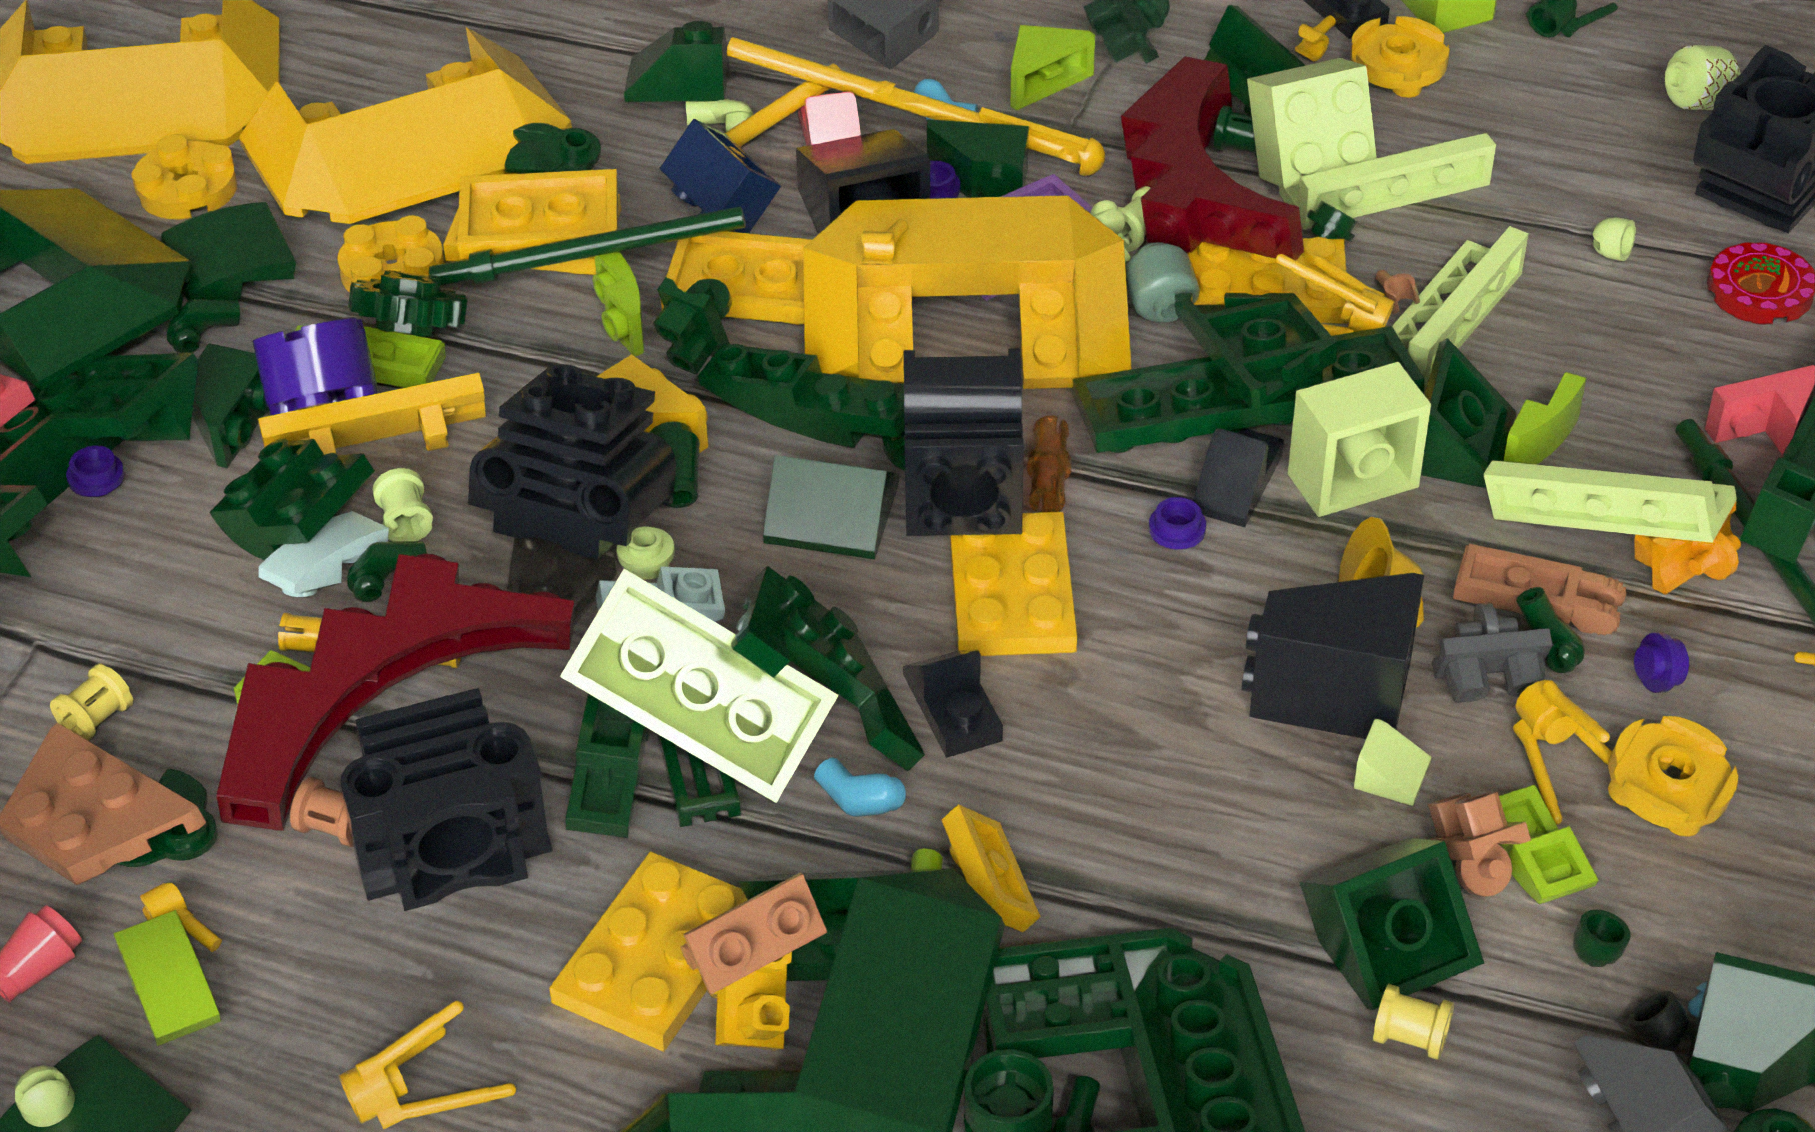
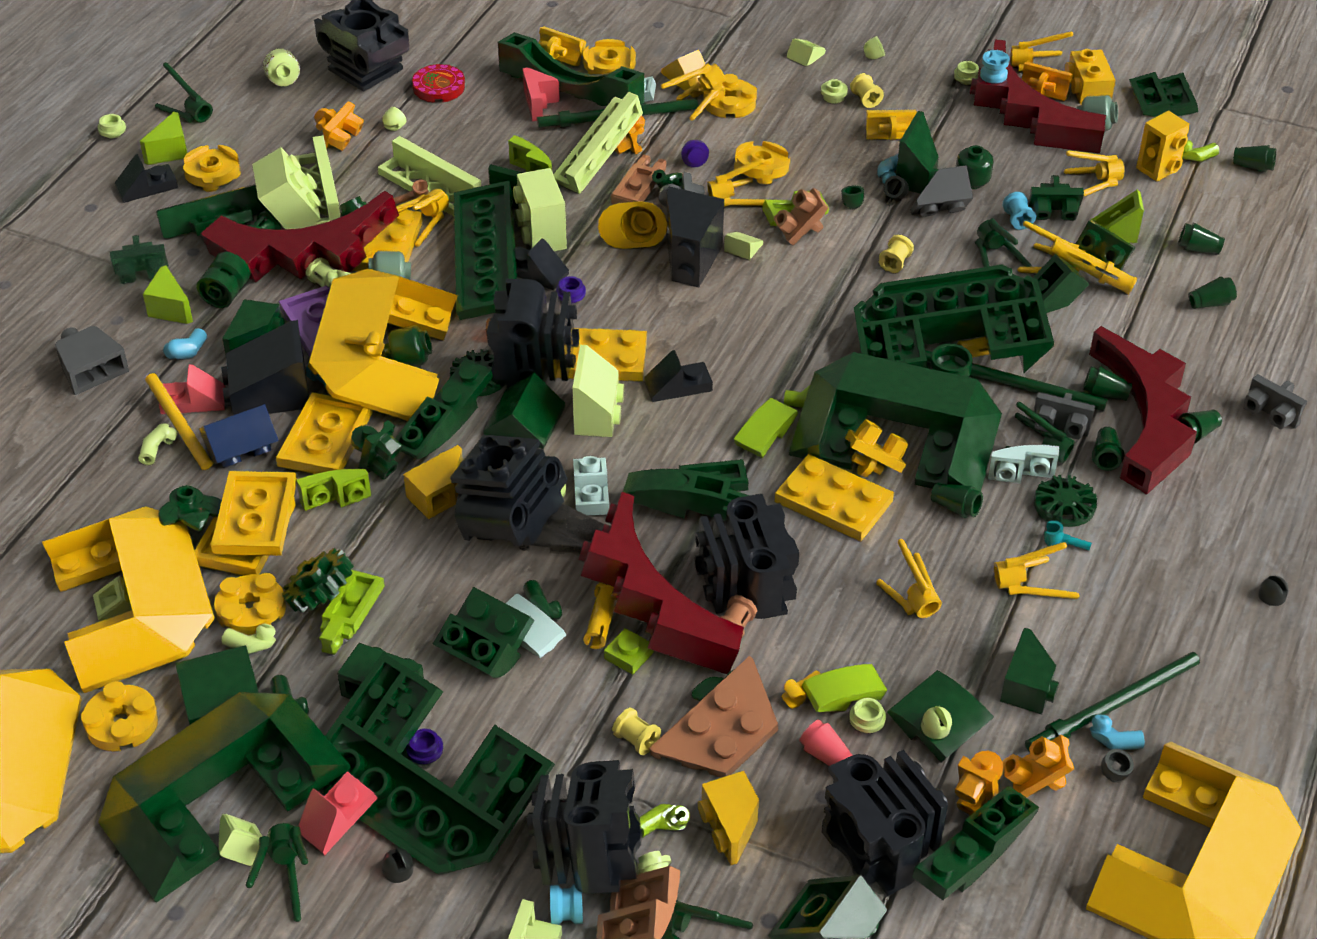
camera: 85 degrees left, 0 degrees up
(102, 1011) = (867, 715): none -> yellowish green plate
(312, 269) = (260, 641): none -> yellowish green arm
(315, 365) = (382, 612): dark purple brick -> none
(383, 415) = (413, 583): yellow hinge -> none
(400, 497) = (498, 588): yellowish green bush -> none
(486, 266) = (294, 540): dark green bar -> none
(681, 66) = (114, 450): dark green slope -> none
(694, 690) = (688, 446): yellowish green slope -> none
(753, 933) = (878, 433): nougat hinge -> none
(790, 625) = (665, 404): dark green wing -> none
(839, 829) = (765, 426): none -> lime slope
(861, 793) = (742, 412): medium azure arm -> none
(863, 556) = (596, 395): none -> yellowish green slope
(967, 328) = (409, 346): none -> dark green head
(990, 866) = (785, 375): yellow plate -> none
(1065, 146) = (258, 291): yellow bar -> none
(1090, 106) = (223, 280): none -> dark green wheel
(1260, 341) = (462, 232): dark green wing -> none
(1315, 40) = (180, 197): yellow hand -> none
(1394, 919) = (837, 250): dark green slope -> none
(1558, 167) = (335, 123): none -> light orange hips

